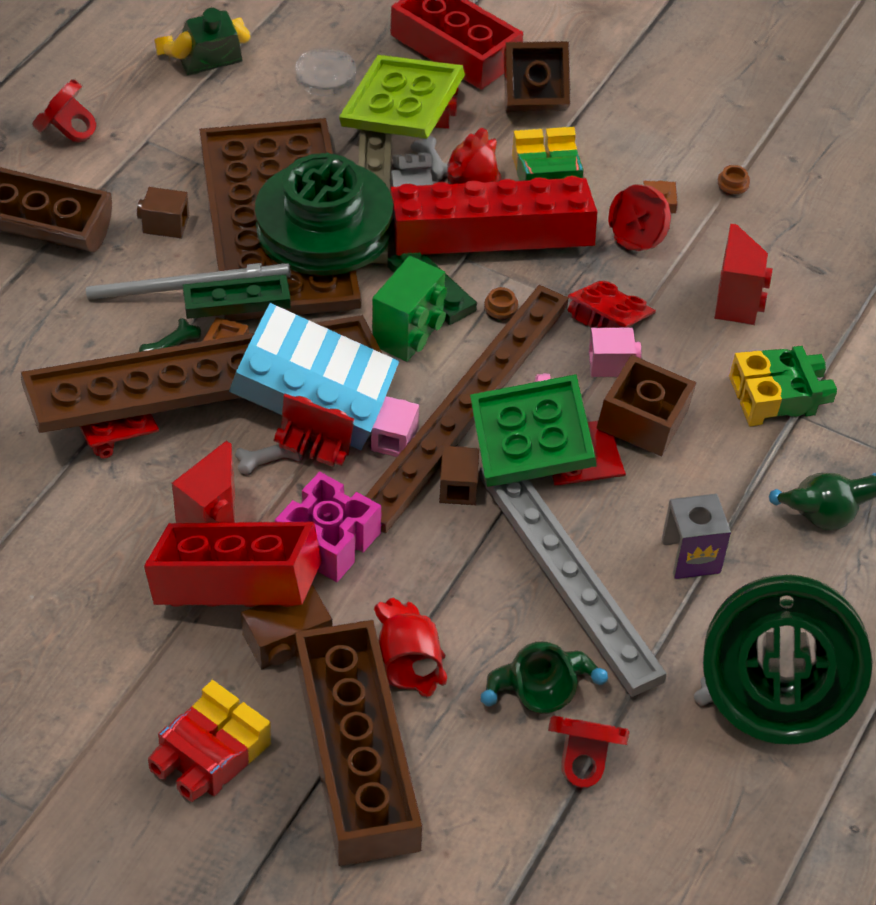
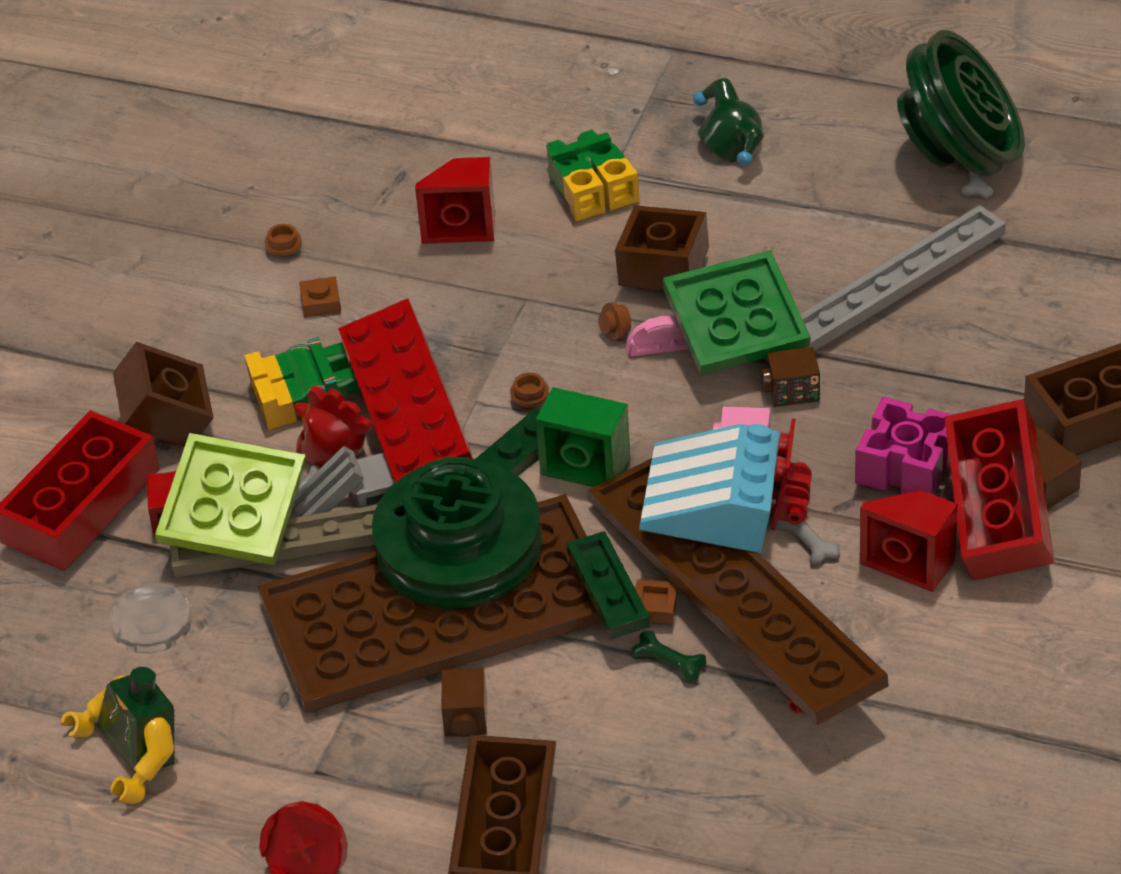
camera: 95 degrees left, 5 degrees down
(177, 282) = (566, 581): light grey bar -> none
(406, 639) = (1021, 358): red piece -> none
(455, 414) = (682, 389): reddish brown plate -> none
(542, 677) = (1016, 282): dark green piece -> none
(570, 365) = (614, 320): none -> dark orange plate
(589, 740) = (1078, 236): red tile -> none
(607, 307) = (515, 305): red hinge -> none
(611, 350) = (582, 292): bright pink brick -> none
(639, 217) = (381, 281): red tile -> none
(701, 532) = (803, 188): piece -> none

